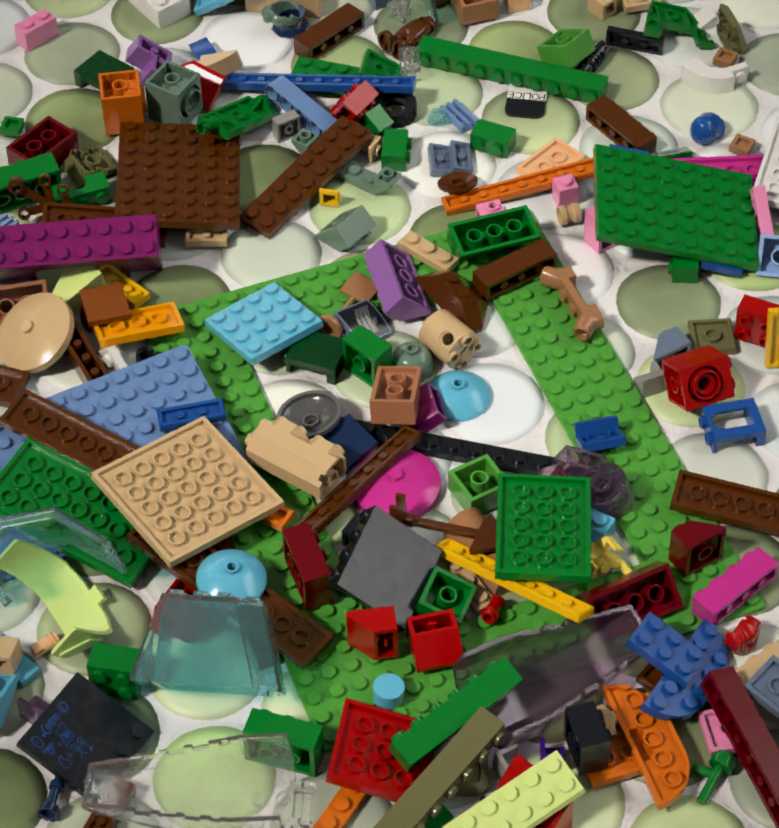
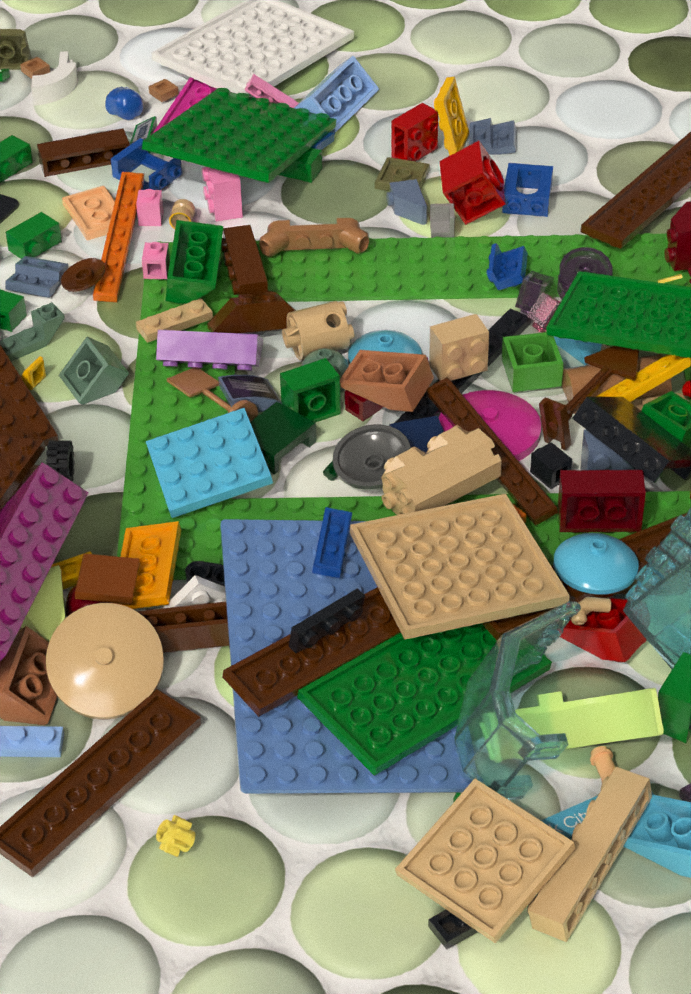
camera: 70 degrees left, 5 degrees down
(89, 428) = (326, 621): none -> black plate
(181, 584) = (588, 605): none -> tan arm
(223, 236) = (61, 457): none -> black tyre
(452, 427) = (459, 348): none -> tan brick

